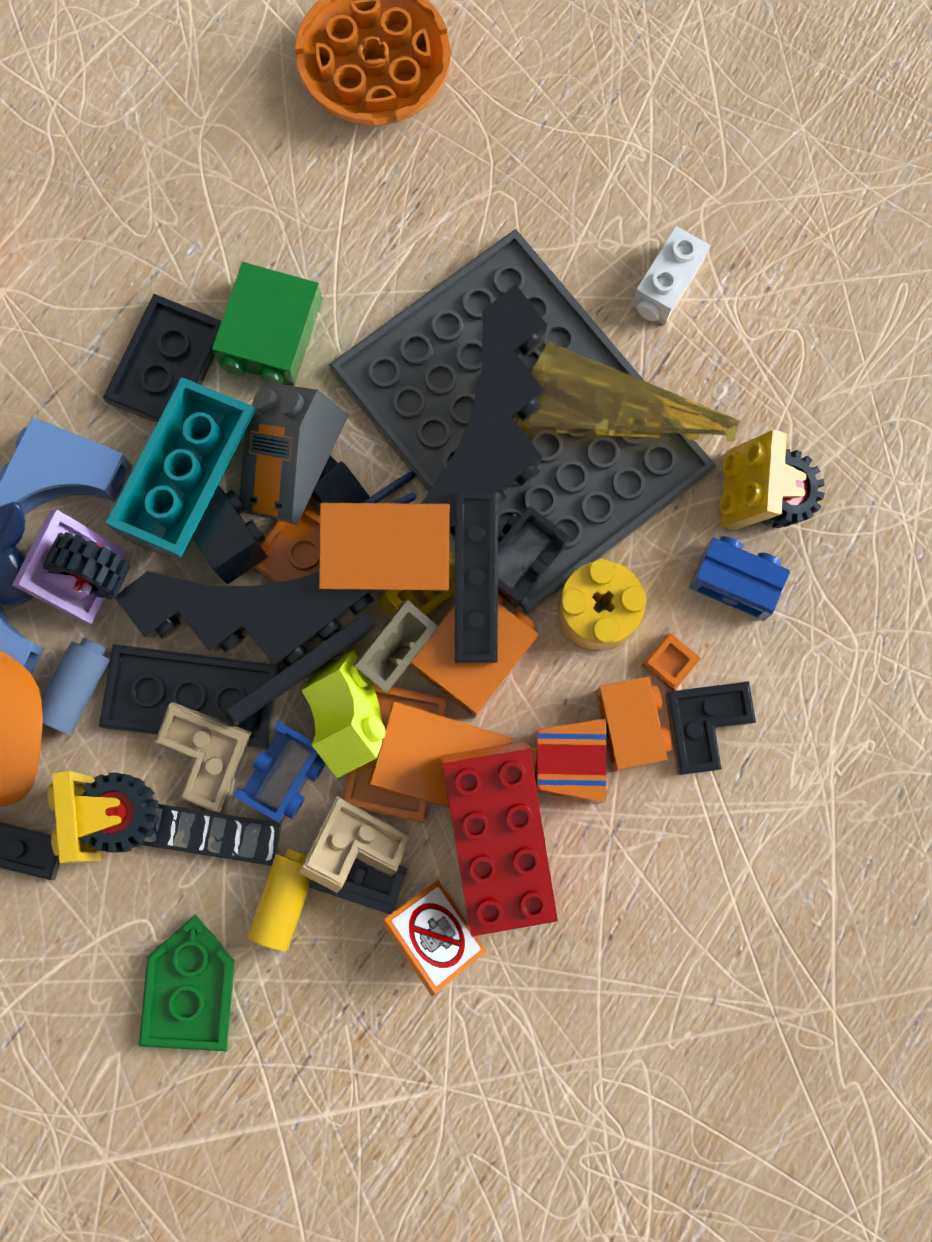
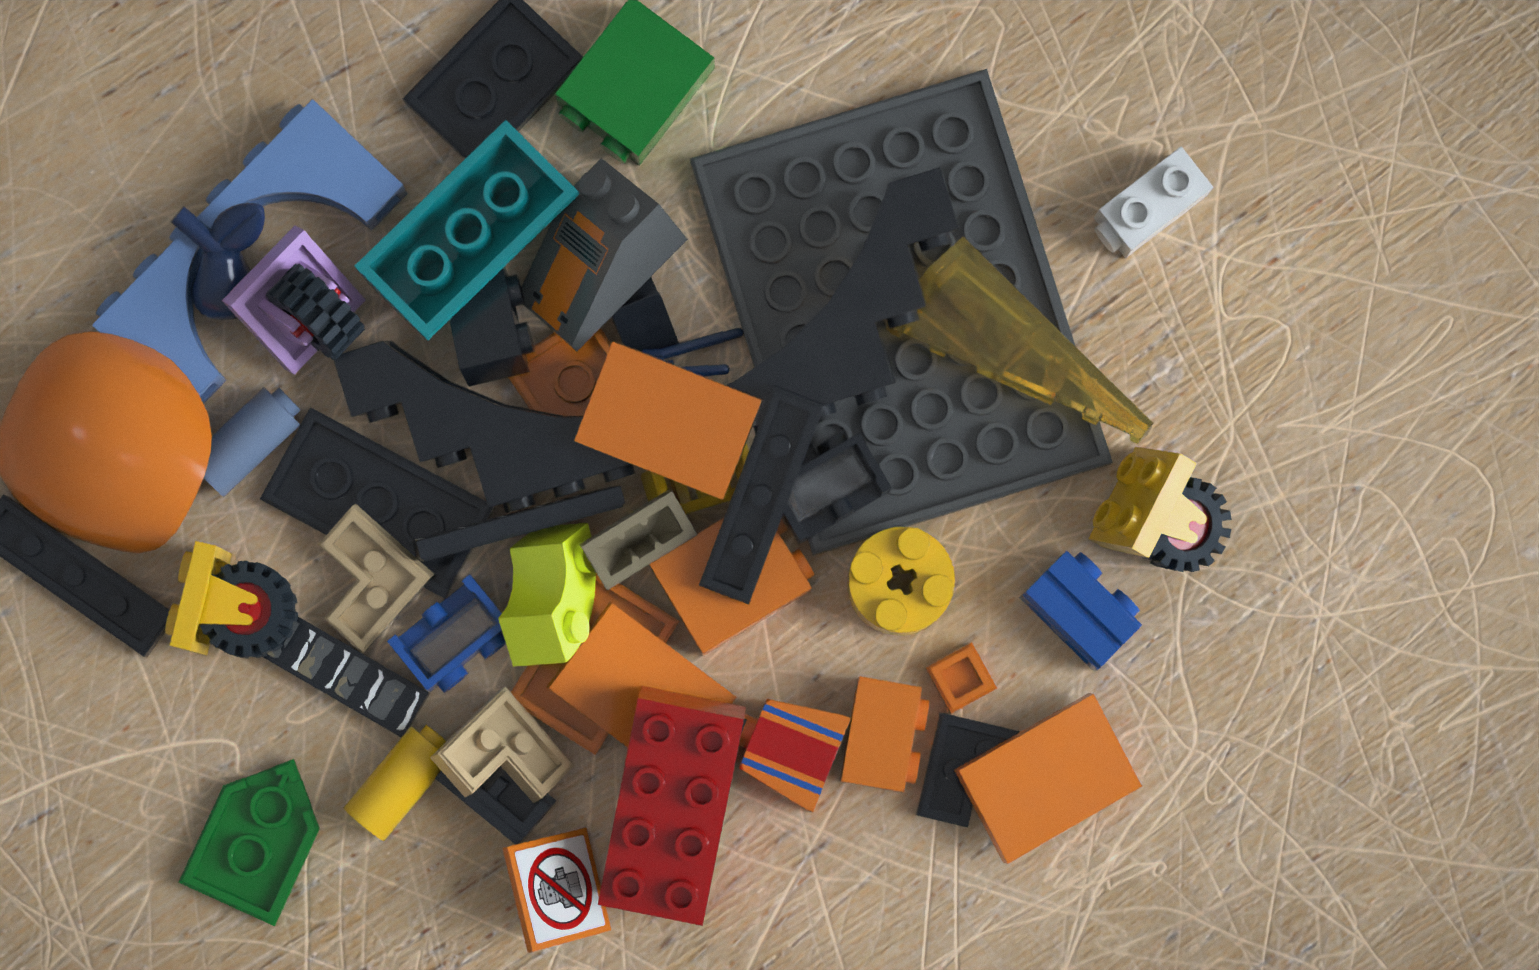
camera: 20 degrees right, 5 degrees up
(766, 709) = (1048, 778): none -> orange tile

